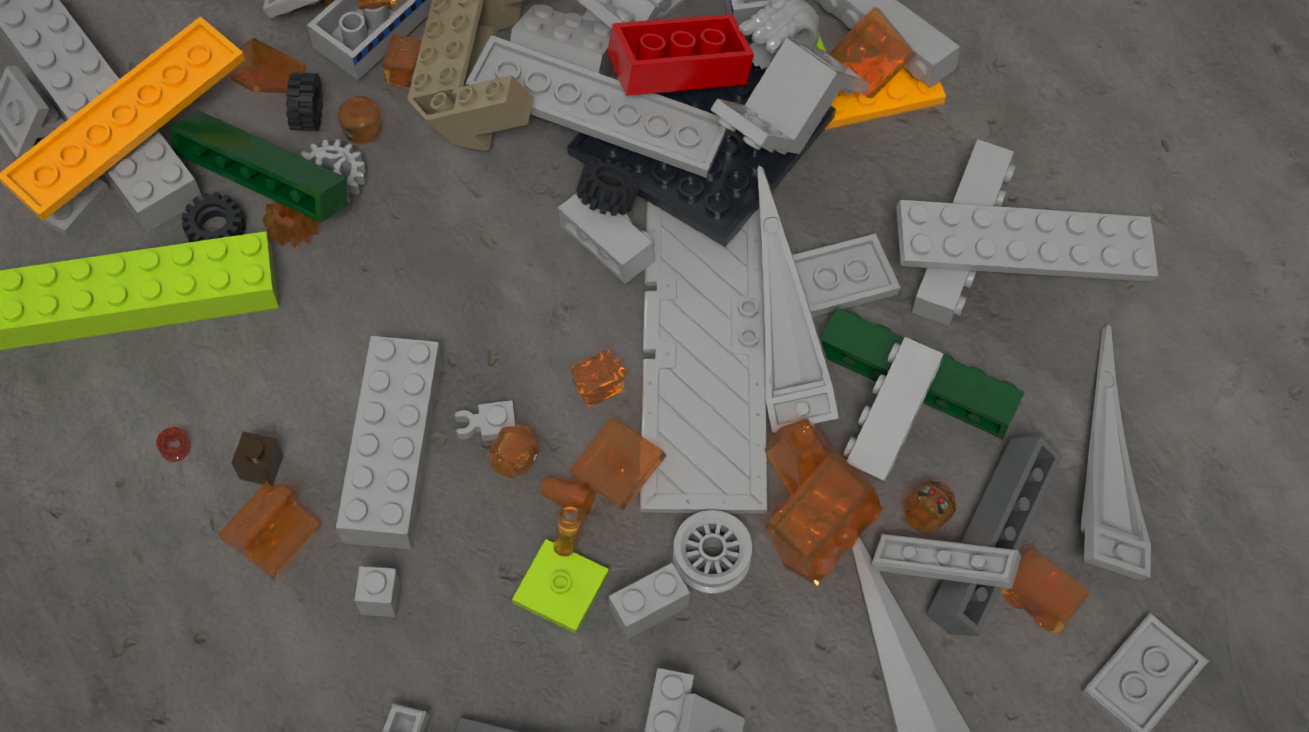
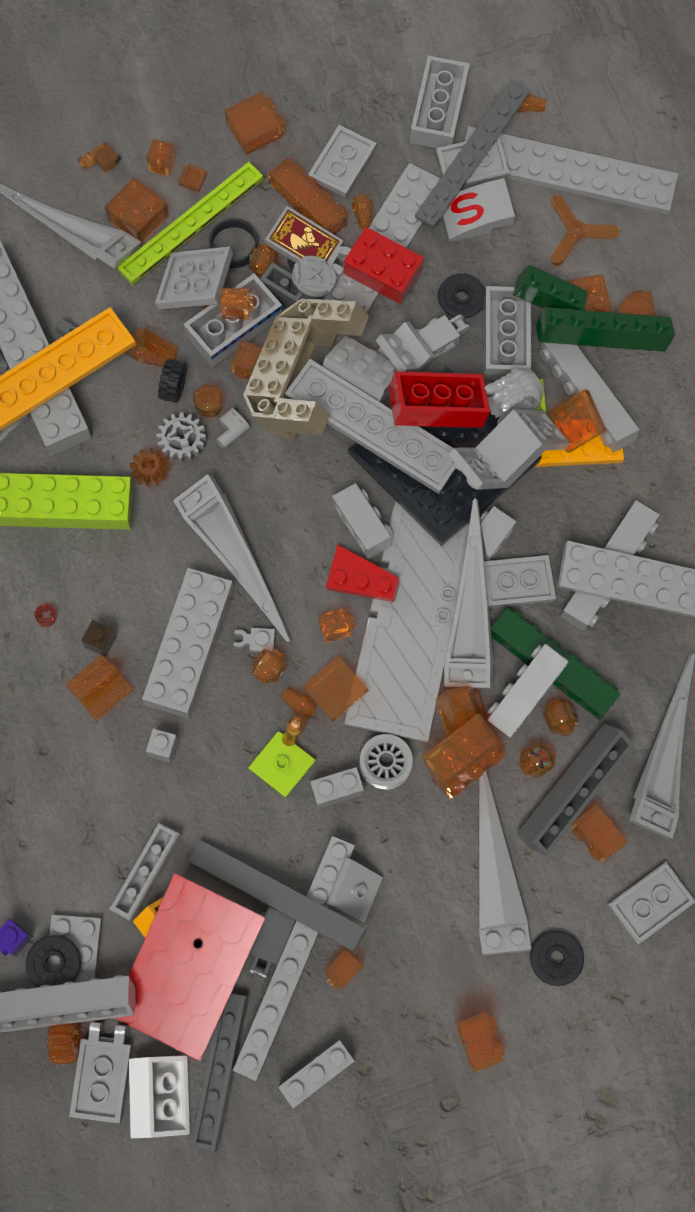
camera: 10 degrees right, 10 degrees up
(210, 208) = (92, 448): black tyre -> none
(260, 166) = (133, 426): dark green brick -> none
(398, 272) = (213, 520): none -> light grey plate
(401, 146) = (234, 425): none -> light grey piece
(608, 187) = (373, 481): black tyre -> none
(621, 309) = (360, 577): none -> red wing
(797, 212) = (494, 531): none -> light grey slope
(946, 560) = (536, 802): light grey tile -> none
(947, 442) = (560, 717): none -> clear orange head

